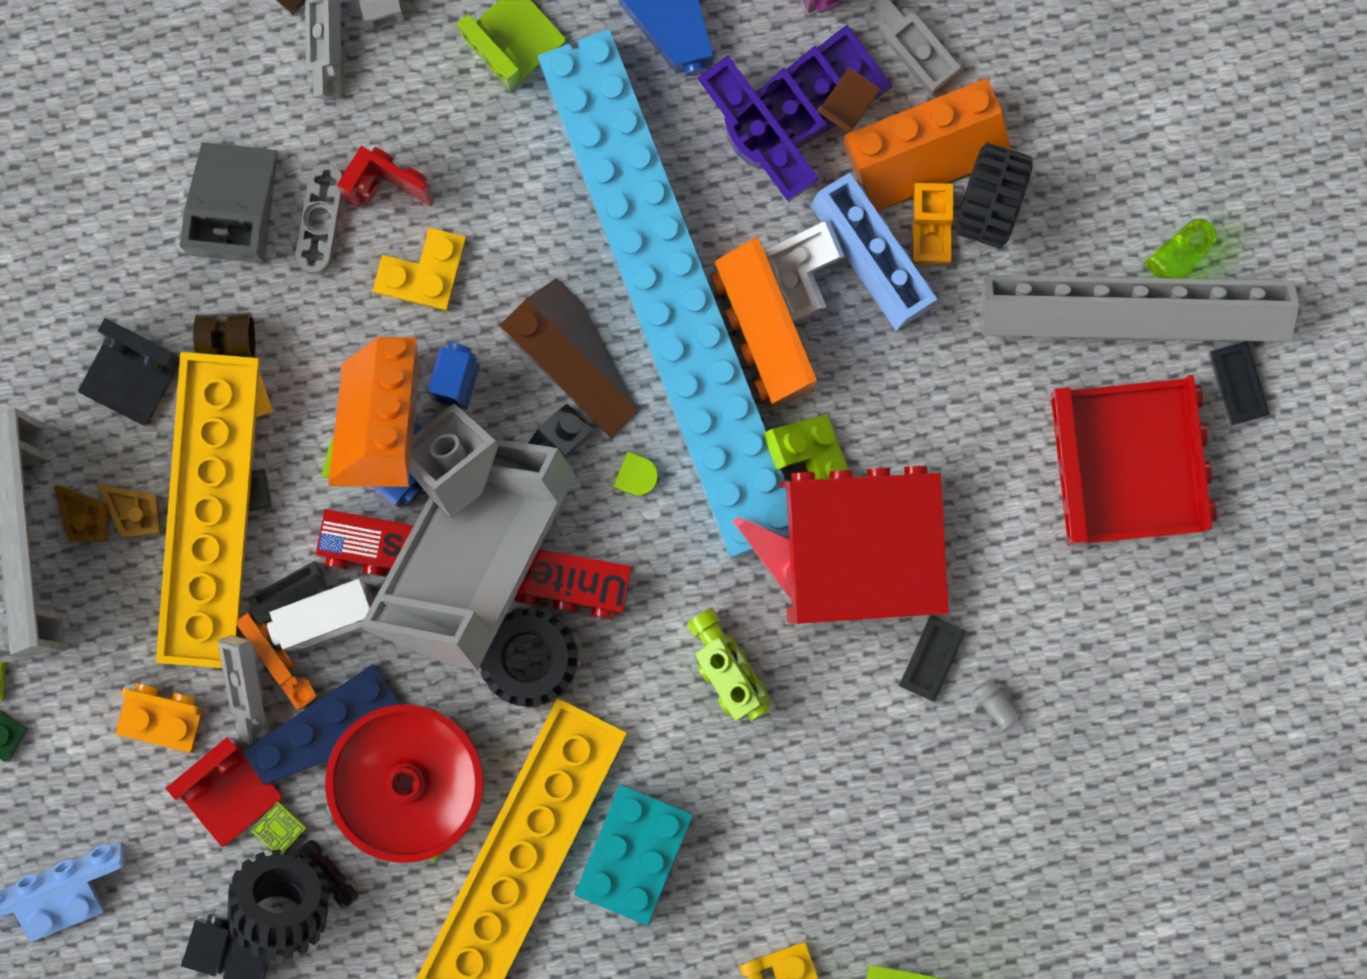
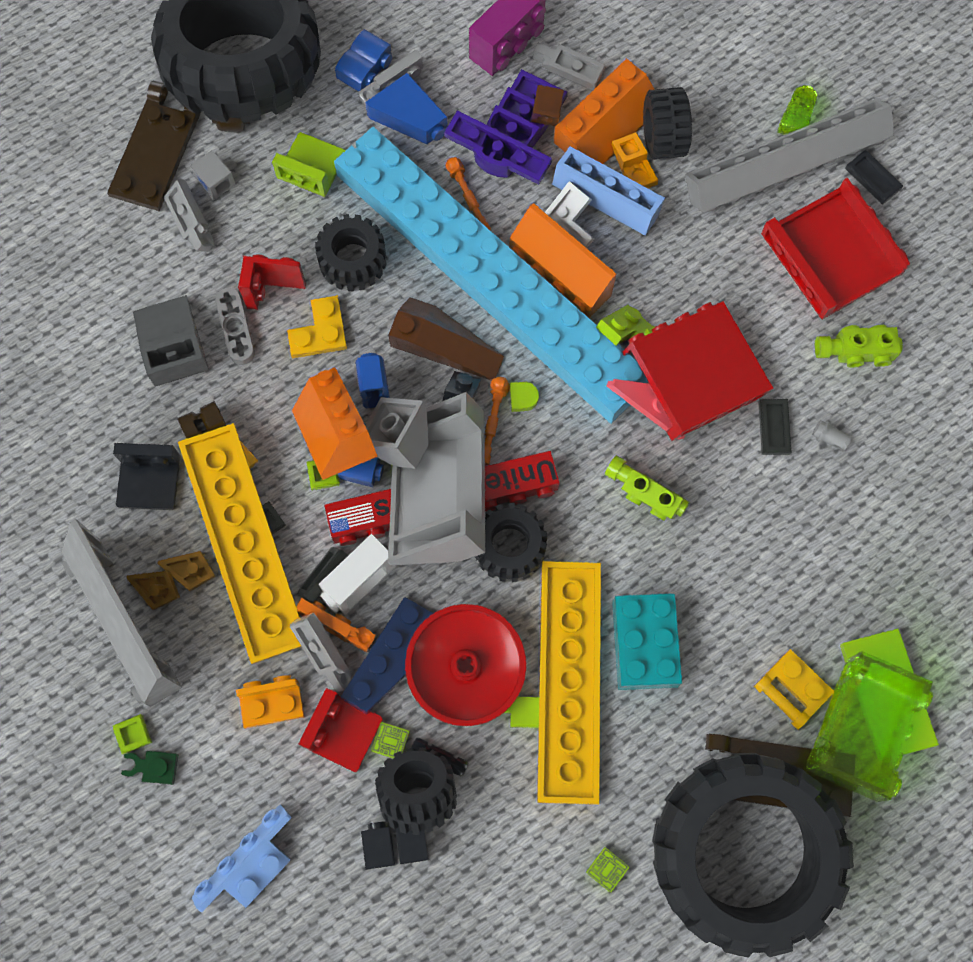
camera: 30 degrees left, 10 degrees down
(451, 869) = (525, 713): none -> lime tile
(496, 158) = (347, 232): none -> black tyre
(612, 451) = (500, 388): none -> orange piece
(696, 127) = (456, 170): none -> orange piece
(1106, 608) = (871, 347): none -> lime brick

